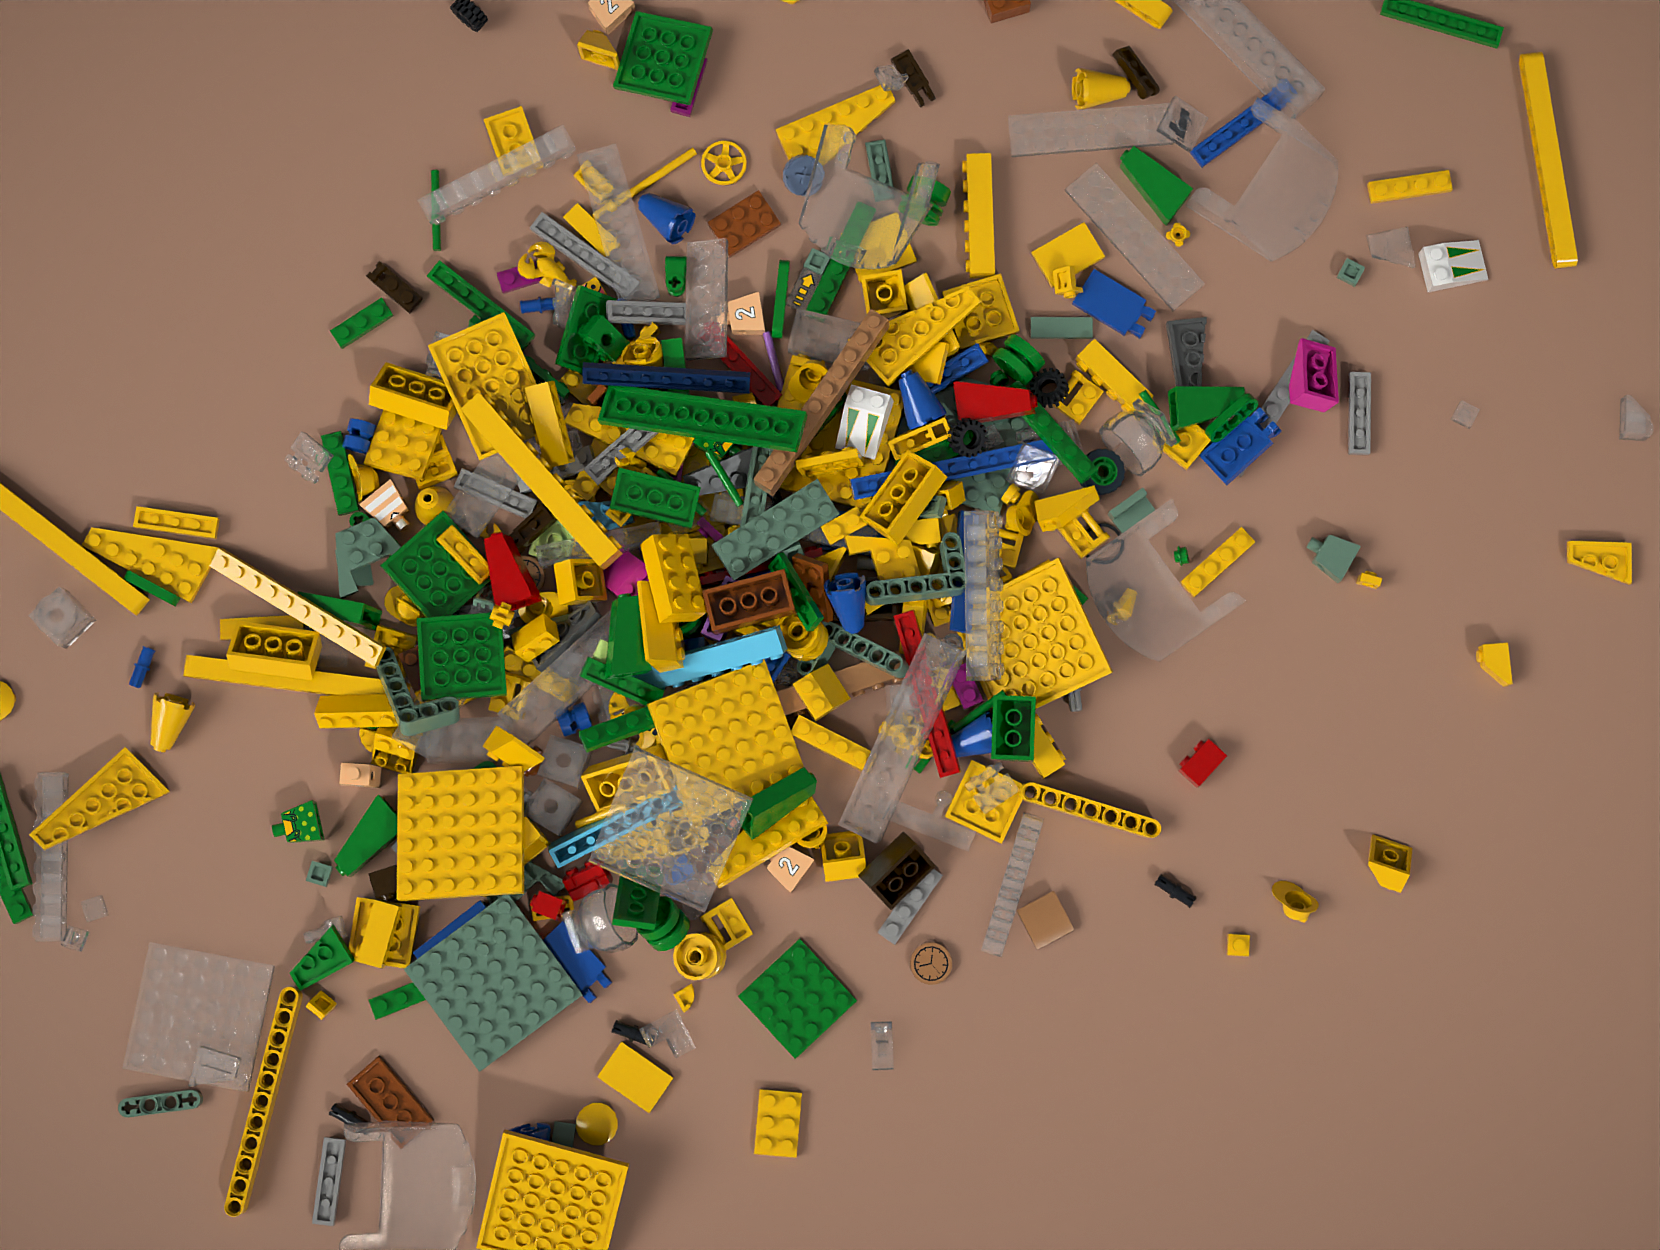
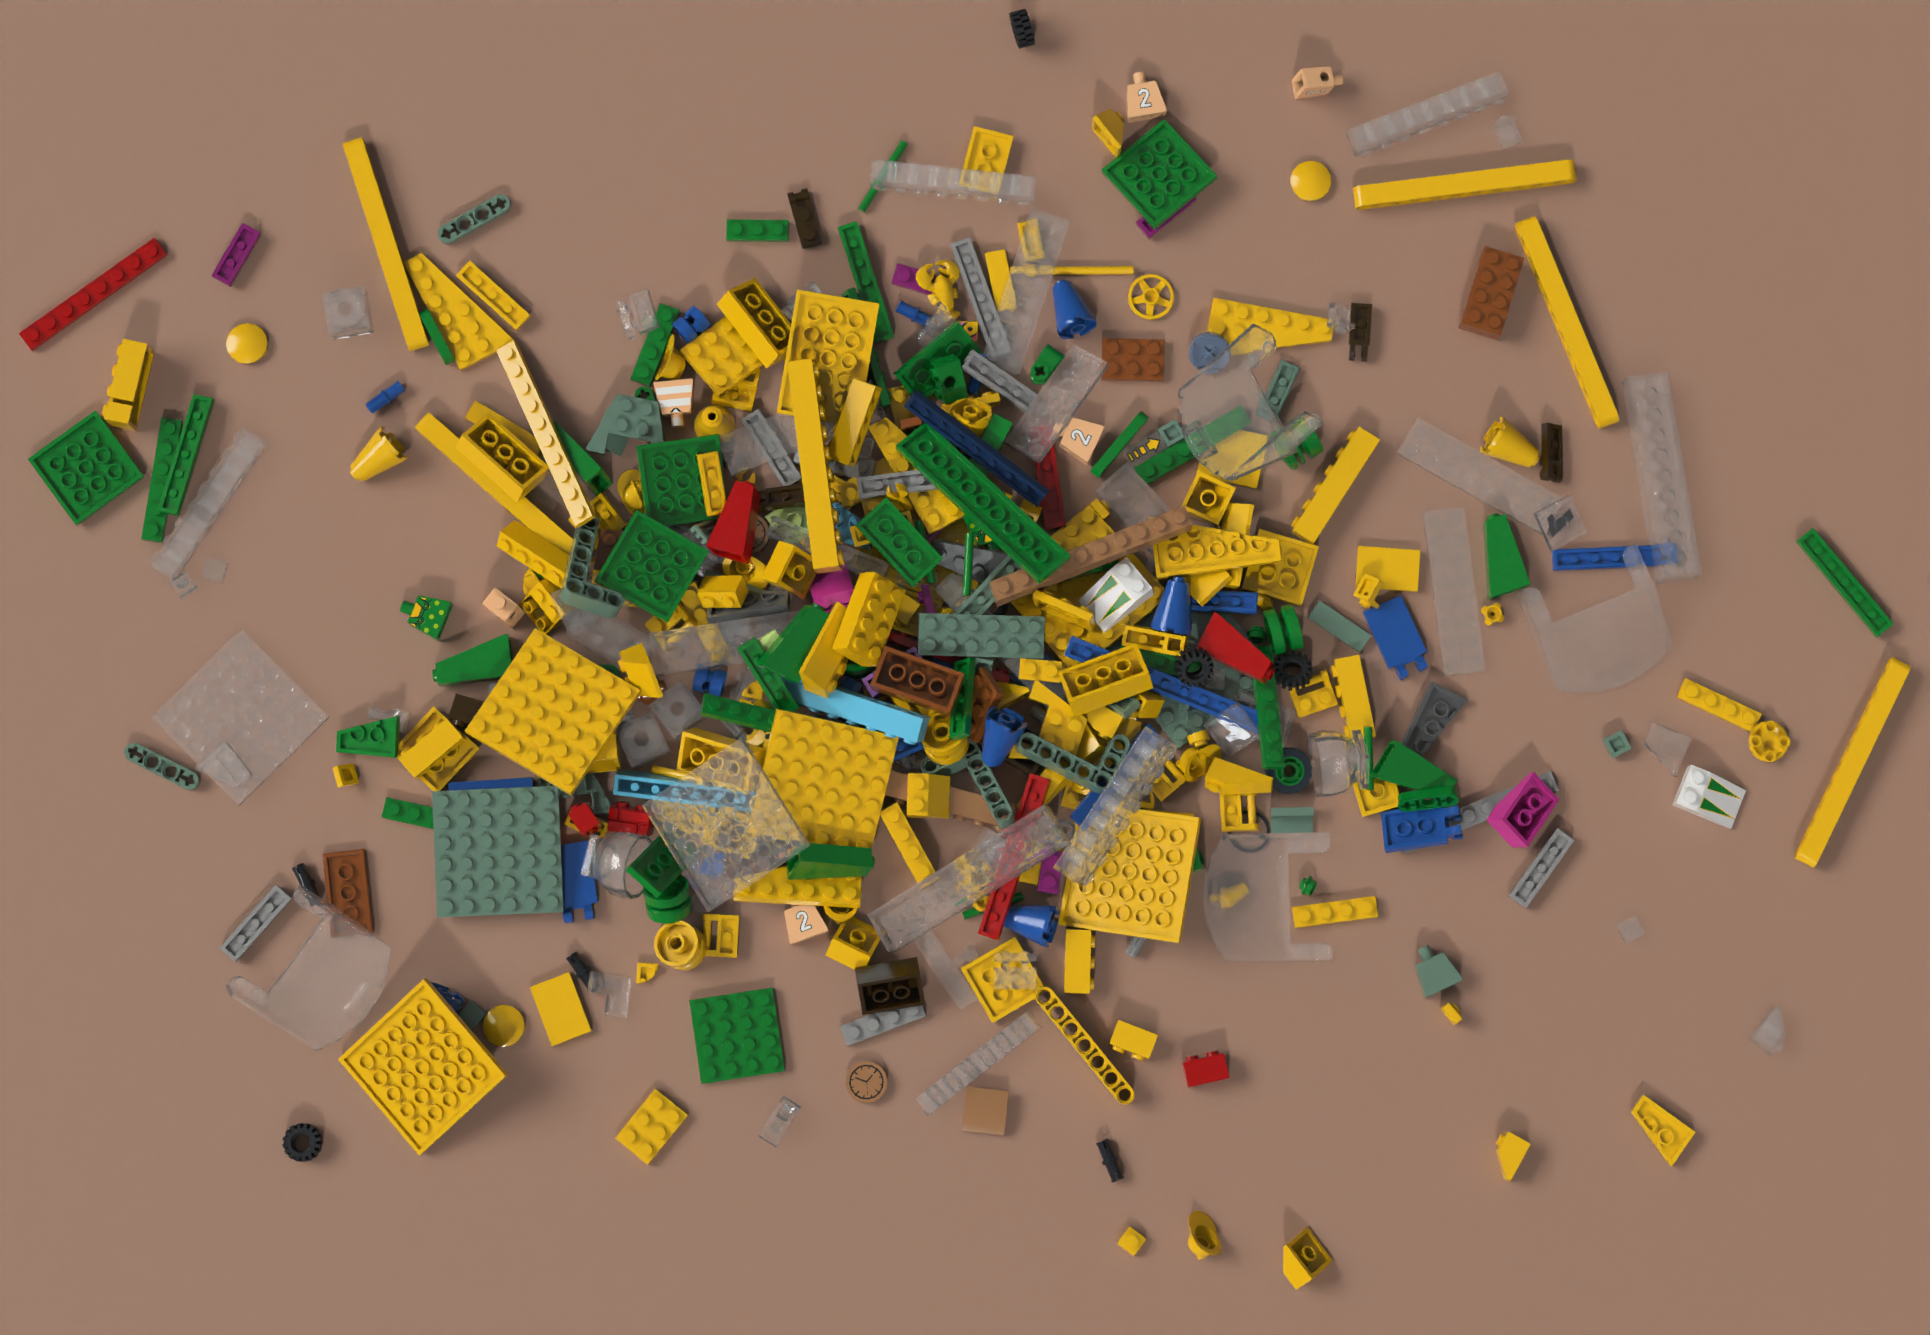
camera: 30 degrees right, 0 degrees up
(110, 793) = (291, 484): yellow wing -> none
(121, 472) = (472, 216): none -> sand green beam
(256, 1108) = (236, 823): yellow beam -> none
(319, 873) = (416, 666): sand green plate -> none
(502, 615) = (707, 554): yellow gear -> none
(773, 360) = (1078, 492): medium lavender bar -> none
(807, 379) = (1094, 527): yellow piece -> none
(975, 713) = (1064, 900): green bar -> none
(1013, 728) = (1065, 933): green slope -> none
(1126, 778) = (1132, 1039): none -> yellow brick
(1469, 188) = (1768, 741): none -> yellow dish

